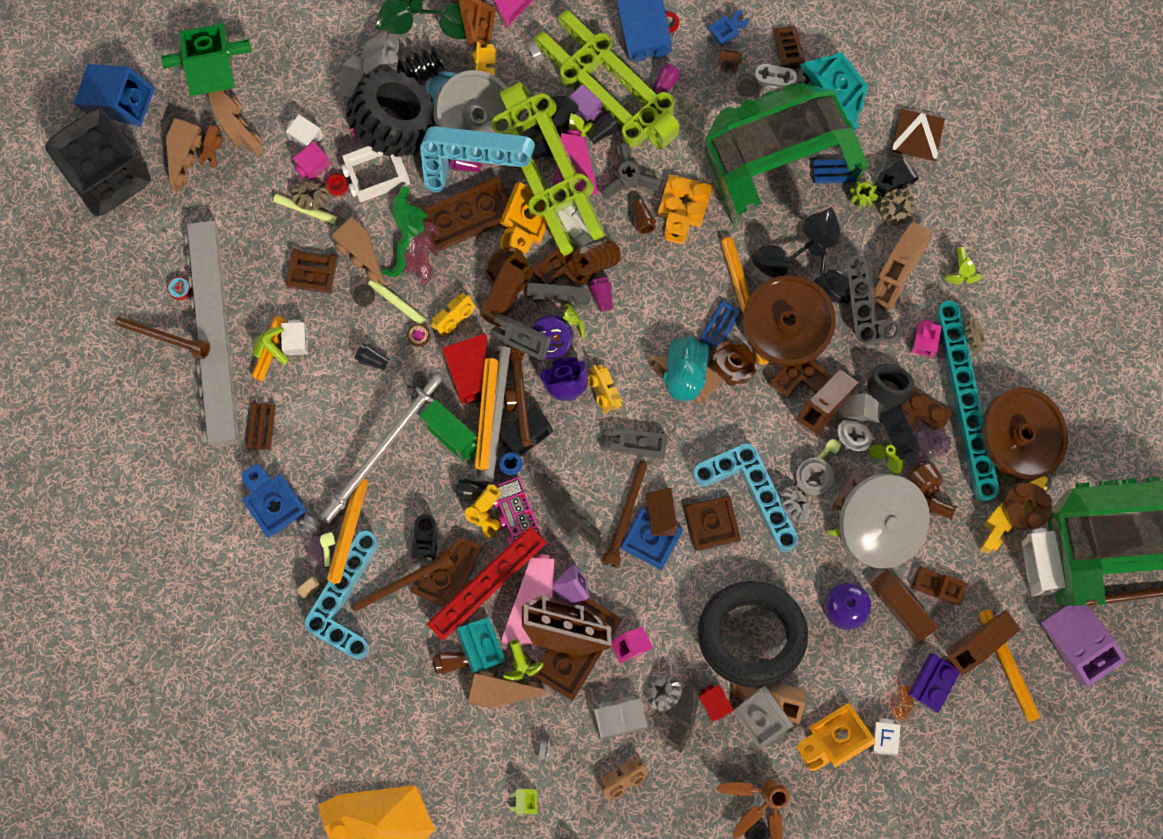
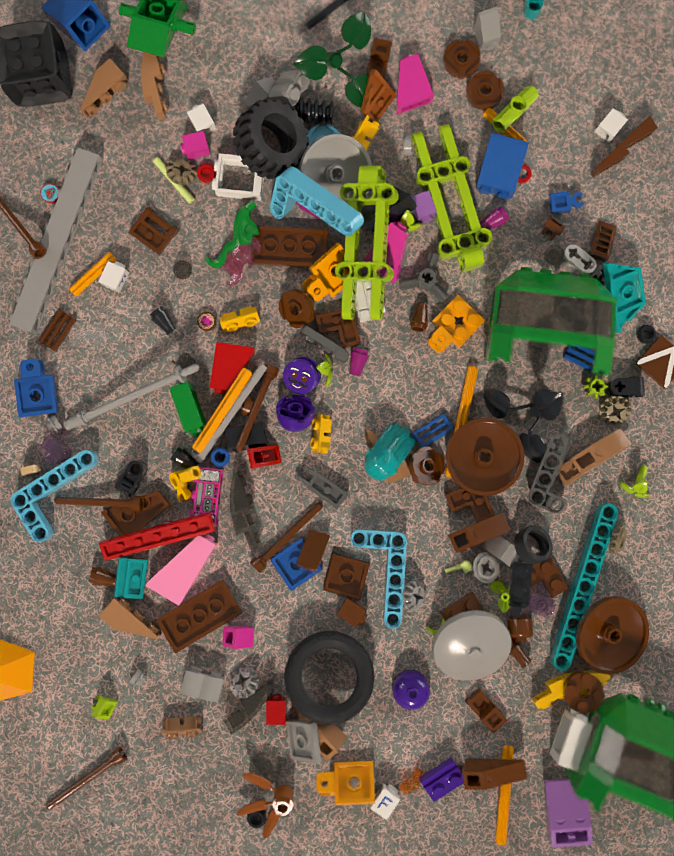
camera: 25 degrees right, 10 degrees up
(212, 141) = (128, 92): dark orange plate -> none
(264, 340) = (89, 267): lime plant -> none
(326, 541) = (55, 444): yellowish green hand -> none
(347, 532) = (75, 445): light orange axle -> none
(356, 242) = (197, 231): medium nougat slope -> none
(396, 301) = (204, 287): yellowish green bar -> none
(505, 289) = (286, 322): reddish brown piece -> none
(521, 337) = (278, 365): dark grey hinge -> none
(521, 663) = (153, 605): lime plant -> none
(555, 442) = (264, 456): none -> red slope
(564, 627) = (194, 600): reddish brown wedge -> none
(572, 585) = (218, 571): medium lavender slope -> none
(596, 257) = (367, 332): reddish brown piece -> none
(603, 128) = (426, 233): black cone -> none
(739, 556) = (352, 612): none -> reddish brown brick
(817, 465) = (433, 588): light grey gear -> none
(886, 109) = (652, 334): none -> black plate
(903, 606) = (451, 713): reddish brown piece -> none
(926, 338) = (580, 522): dark pink brick -> none

